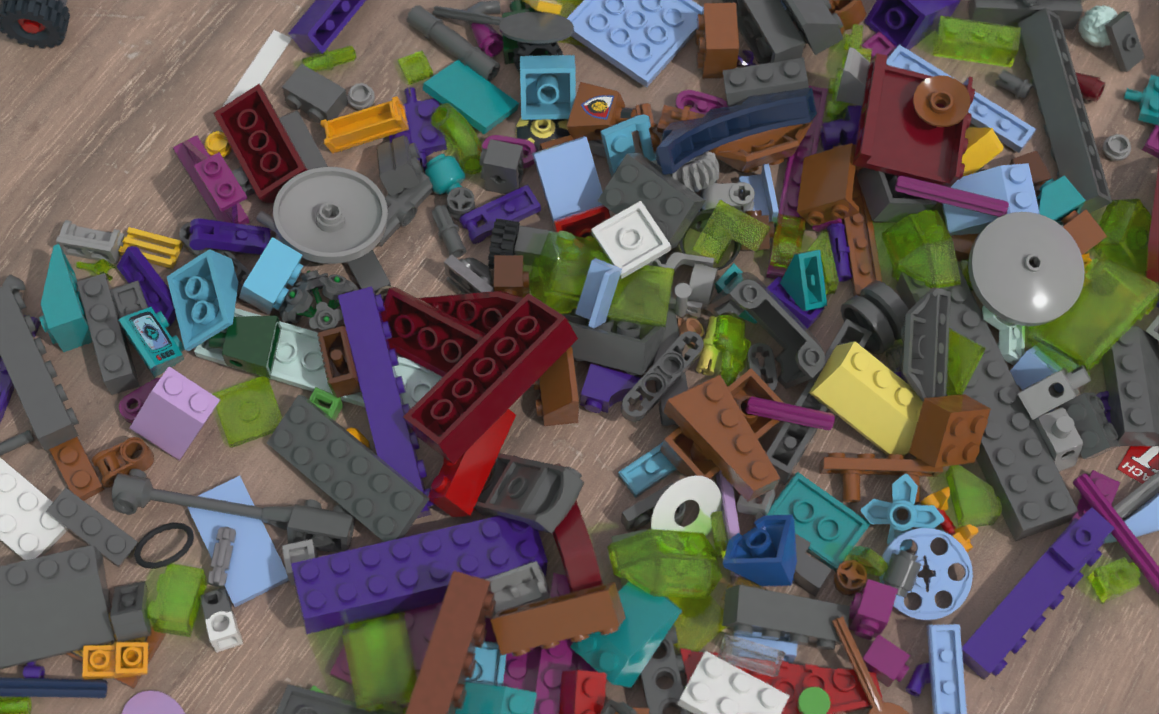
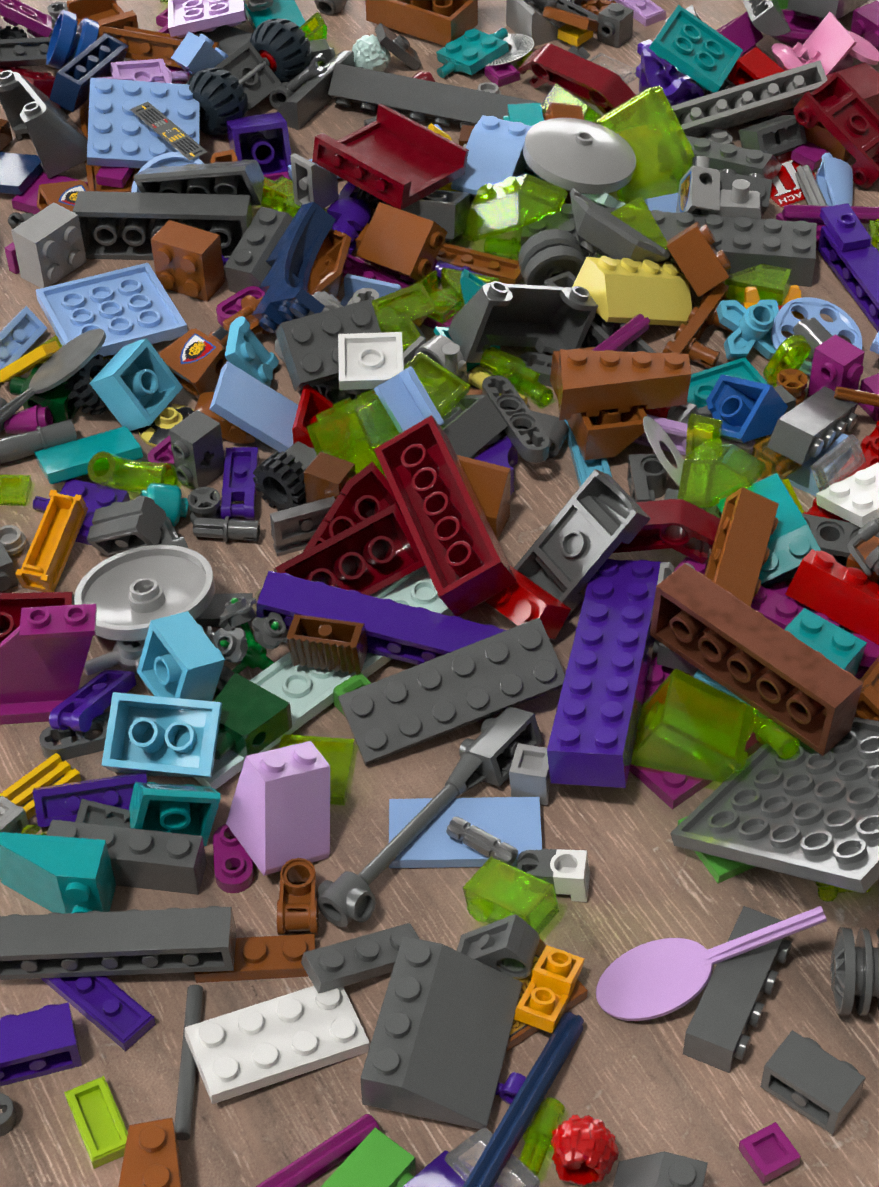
camera: 60 degrees left, 20 degrees down
(153, 565) = (451, 909): black piece -> none
(943, 91) = (389, 127): dark orange dish -> none
(951, 196) = (479, 166): magenta axle -> none
(976, 41) = (332, 115): clear neon green brick -> none

